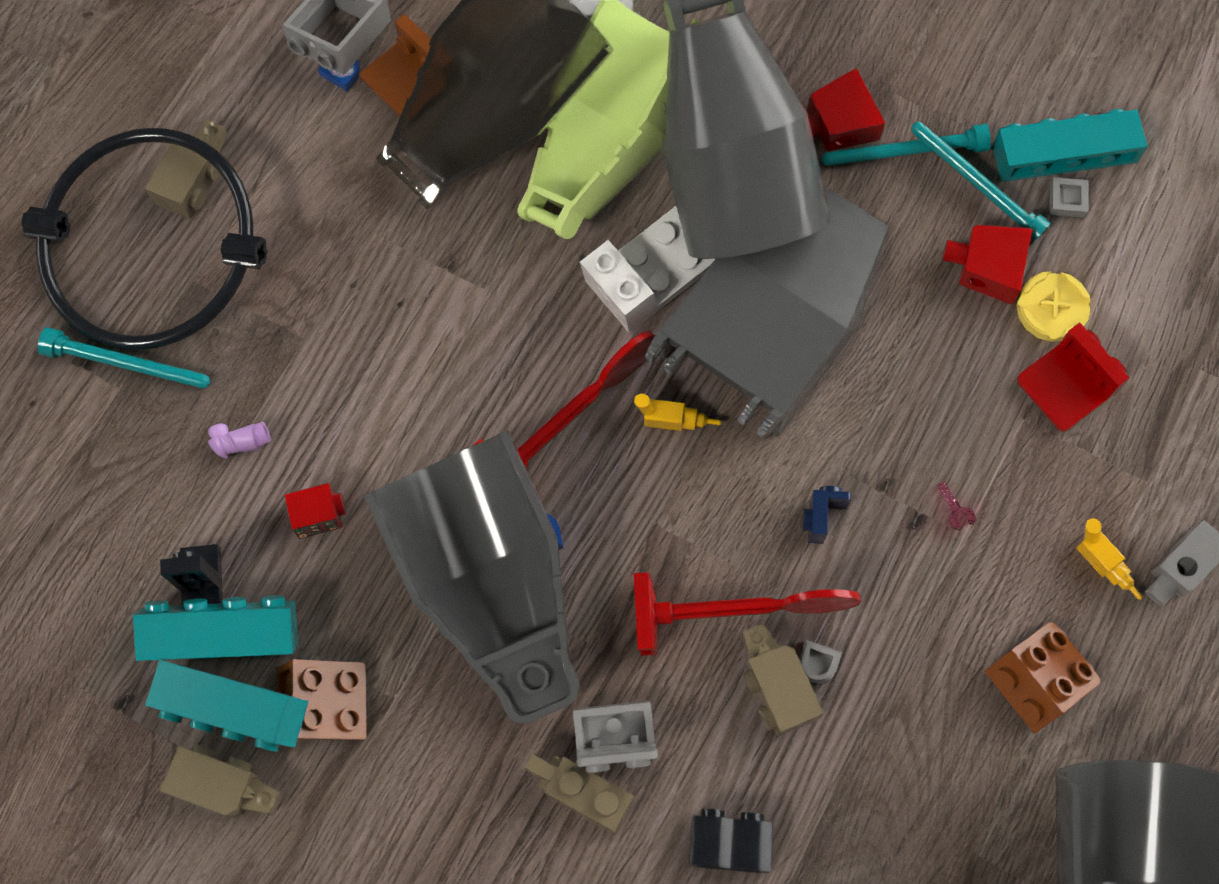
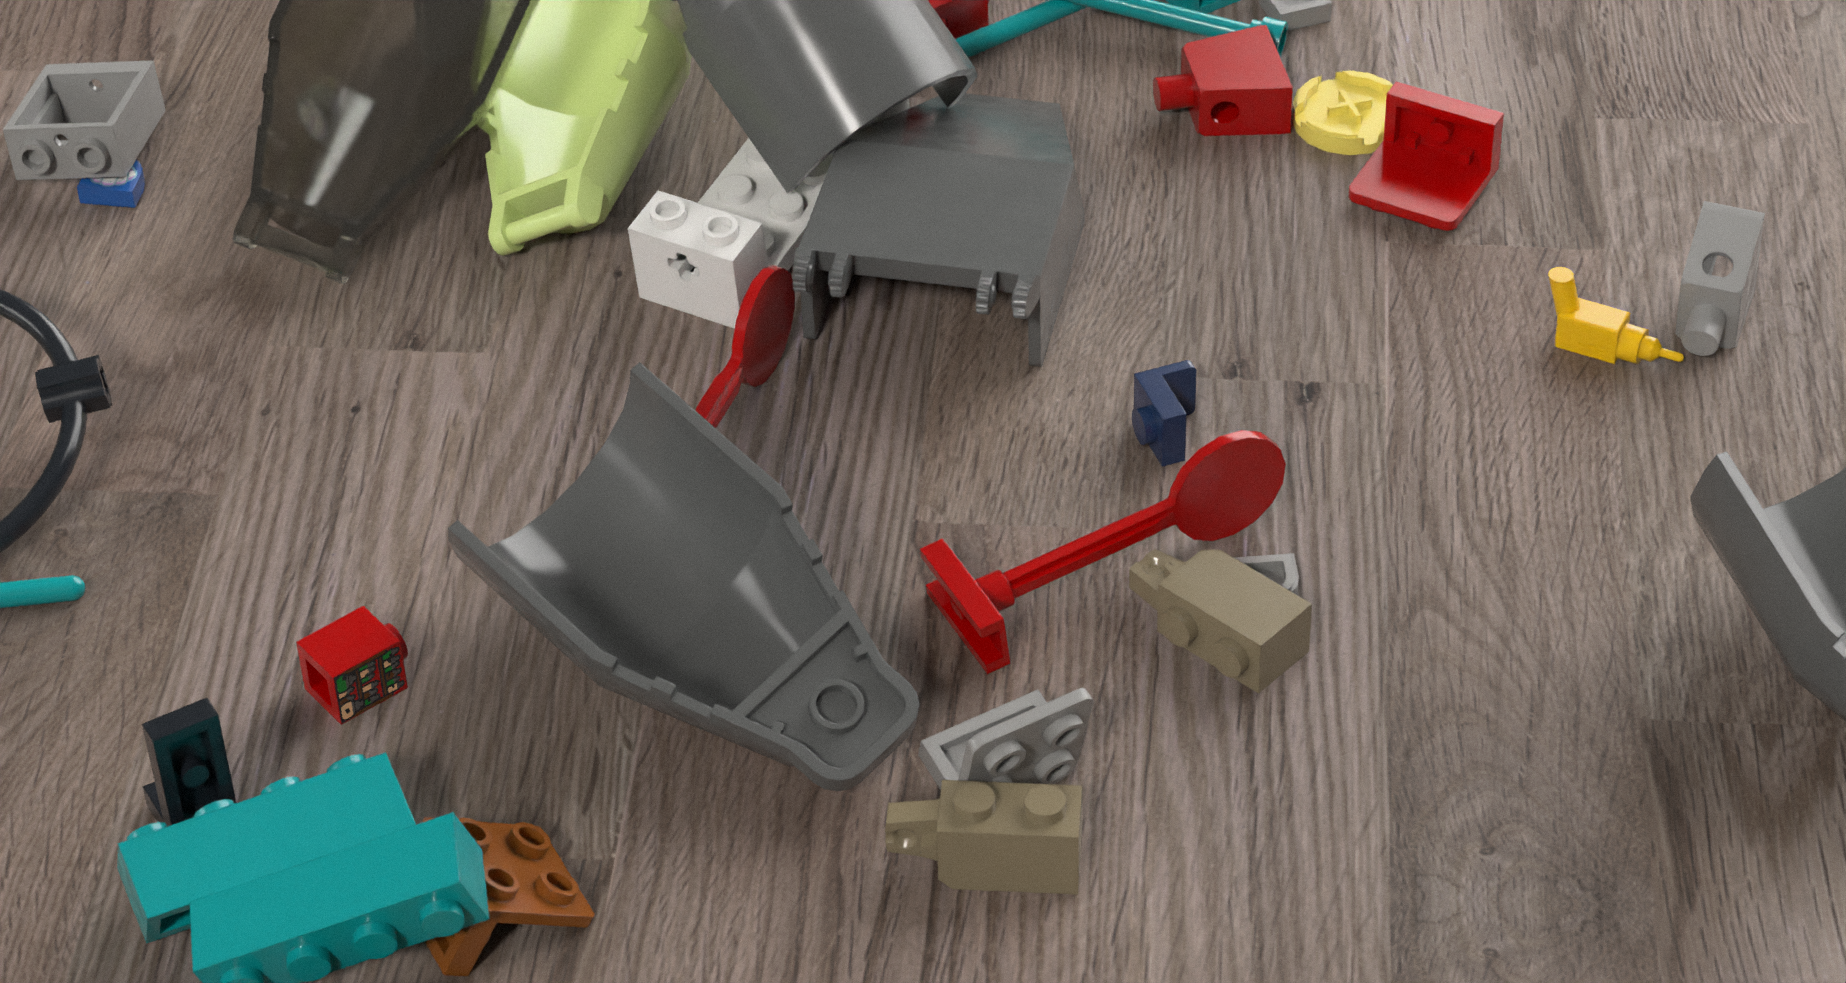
camera: 25 degrees left, 30 degrees down
(243, 439) = (173, 627): lavender arm -> none
(395, 71) = (219, 145): dark orange bracket -> none
(671, 414) = (861, 384): yellow piece -> none
(731, 843) = (1268, 819): black brick -> none
(955, 508) = (1366, 357): clear pink hand -> none
(1043, 676) = (1598, 482): dark orange bracket -> none

